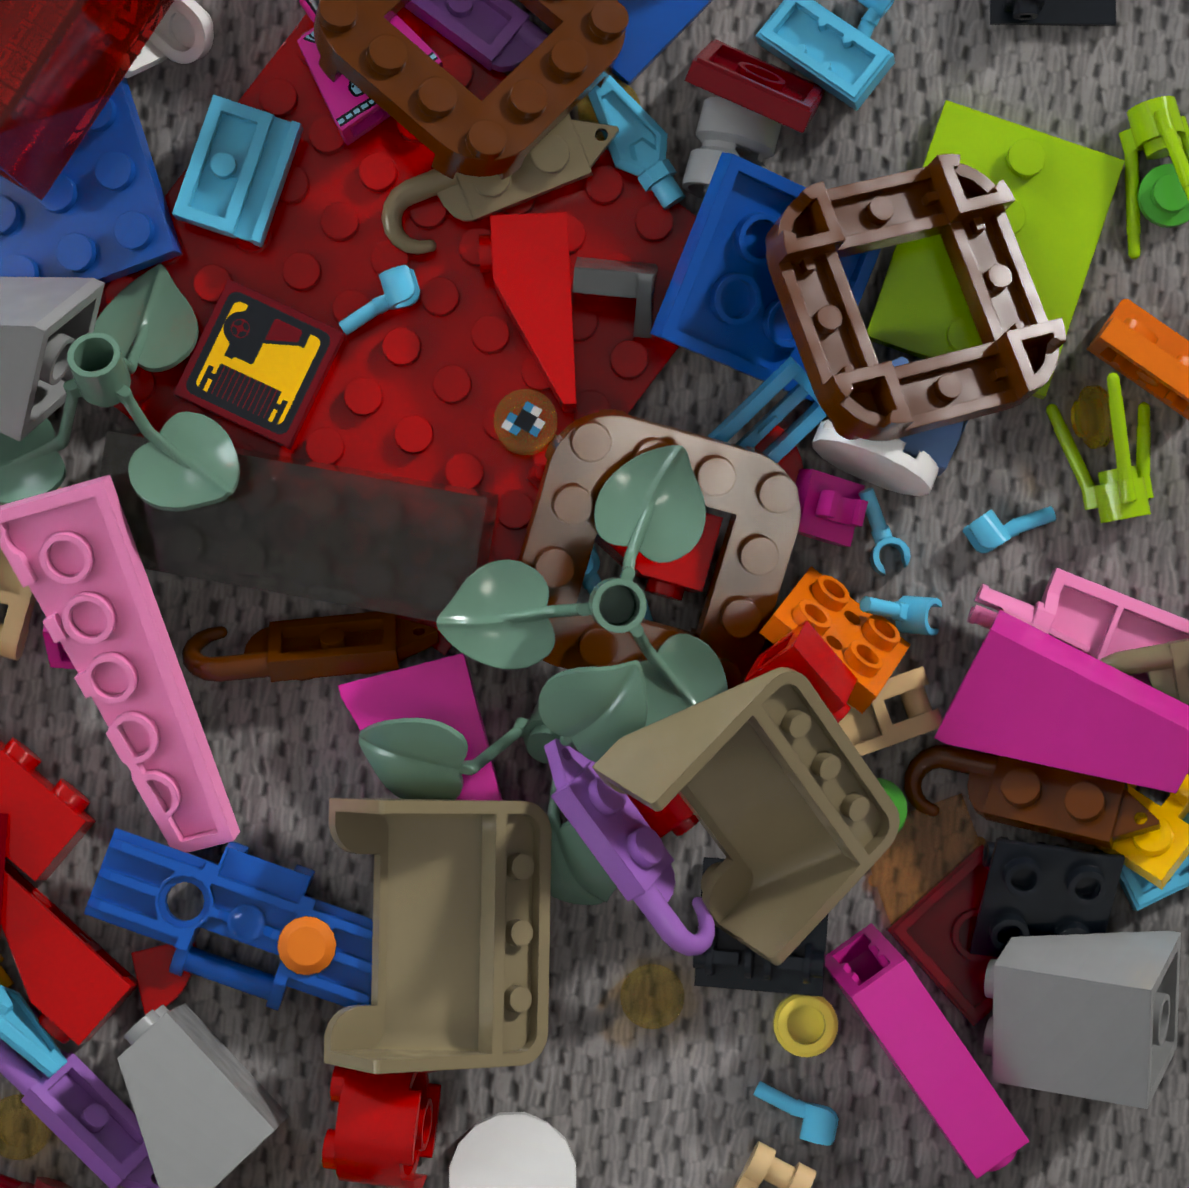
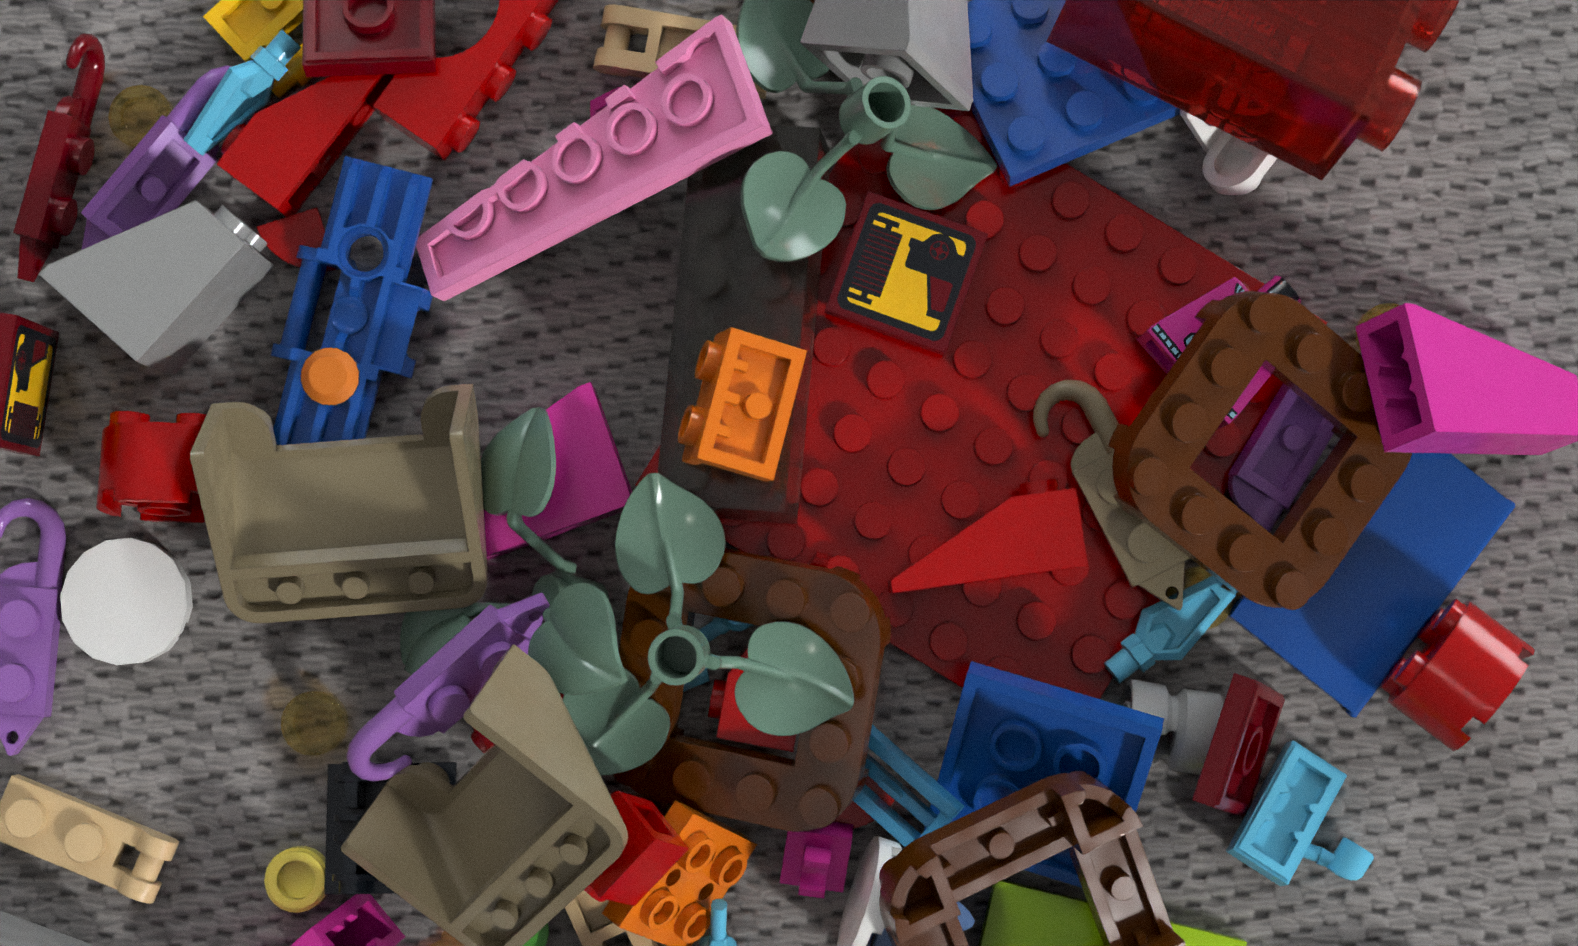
camera: 80 degrees right, 0 degrees up
(237, 171) = (1097, 232): medium azure plate -> none
(313, 648) = (627, 351): reddish brown plate -> none
(376, 527) = (741, 403): none -> orange bracket
(399, 290) = (993, 405): medium azure hand -> none
(525, 422) = (873, 543): clear yellow tile -> none
(620, 280) = (1024, 625): dark grey tile -> none
(818, 1121) = (204, 901): medium azure hand -> none
(881, 533) = (796, 913): medium azure hand -> none

